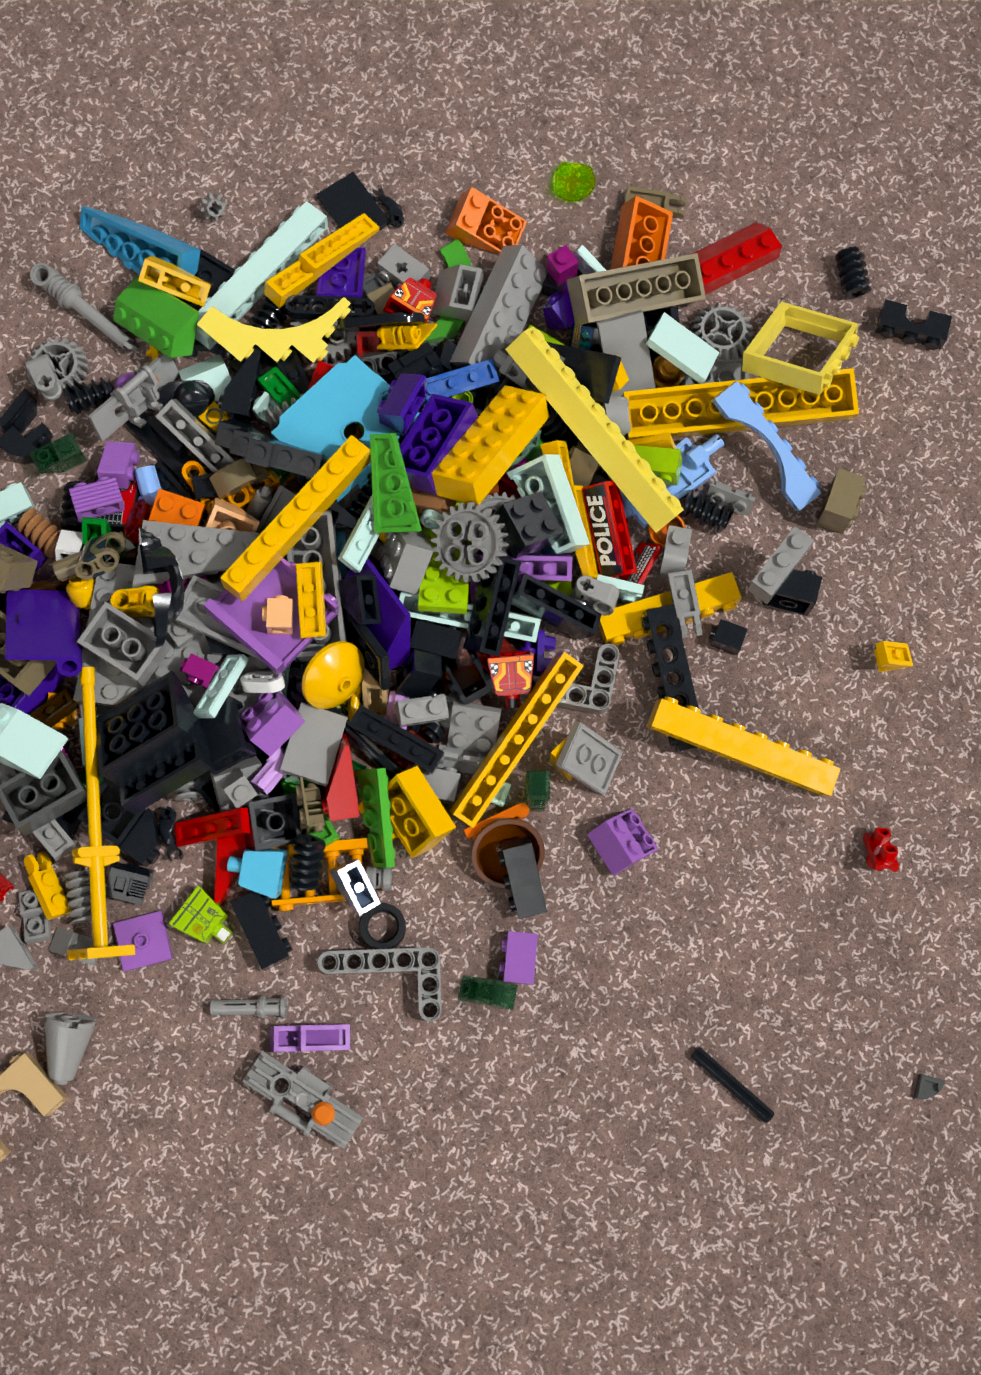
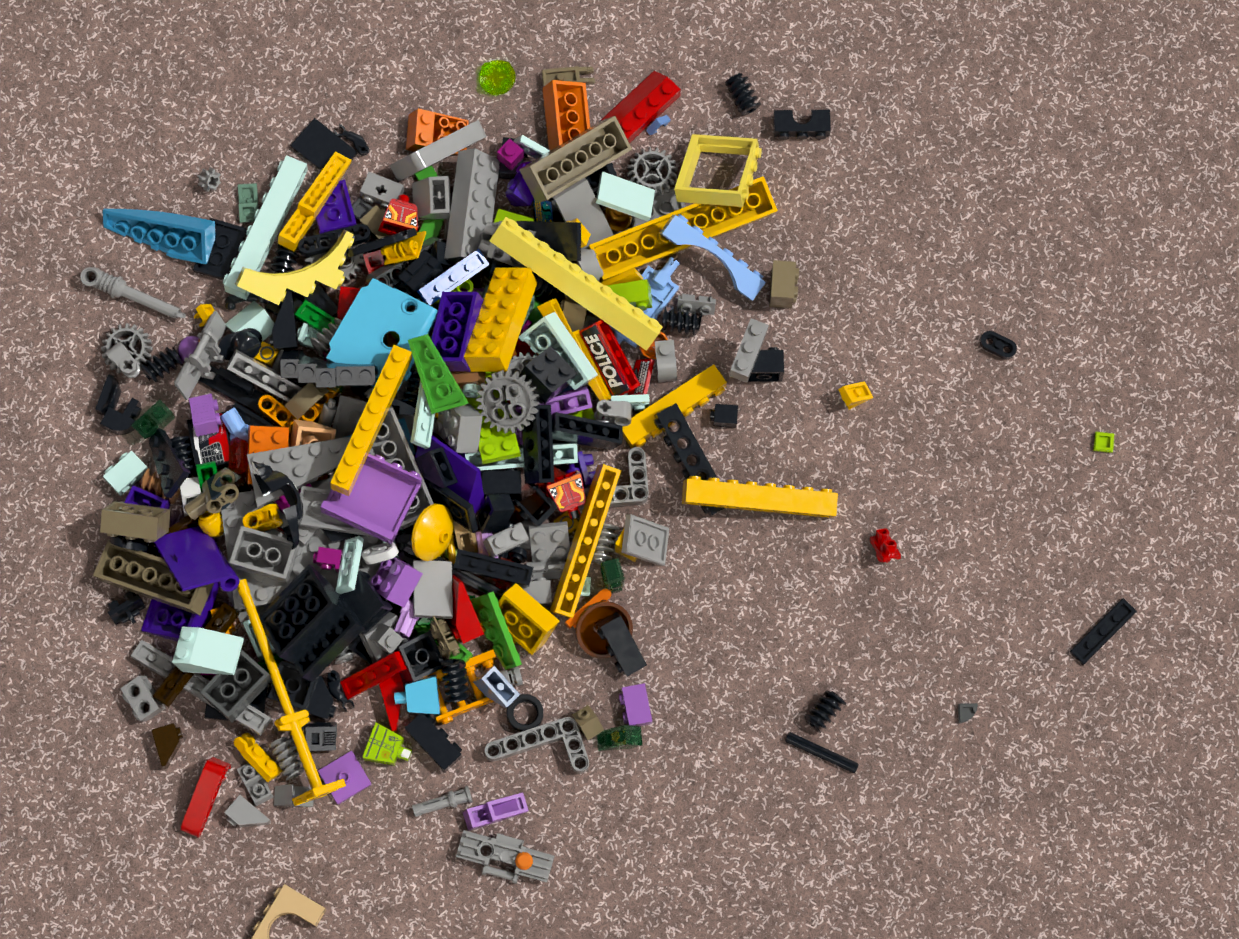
camera: 20 degrees left, 0 degrees up
(54, 508) = (168, 465): none -> black wing
(66, 1044) = (313, 869): light grey cone -> none
(97, 498) = (200, 446): medium lavender brick -> none
(157, 318) = (199, 287): bright green slope -> none
(174, 280) = (205, 253): yellow slope -> none
(203, 487) = (281, 413): black tile -> none
(249, 241) = (247, 201): none -> sand green slope
(278, 615) = (379, 498): light nougat brick -> none
(311, 600) = (400, 480): yellow tile -> none
(403, 402) = (424, 306): dark purple slope -> none
(454, 961) = (588, 722): none -> dark tan brick
(479, 238) = (438, 150): none -> light grey beam
(506, 713) = (572, 523): none -> yellow tile
(538, 747) = (604, 542): none -> light grey piece
(622, 841) = (688, 596): medium lavender slope -> none
(685, 600) = (683, 397): light grey hinge -> none
(743, 279) = (652, 129): none -> medium blue tile
(750, 1033) = (824, 710): none -> black piece

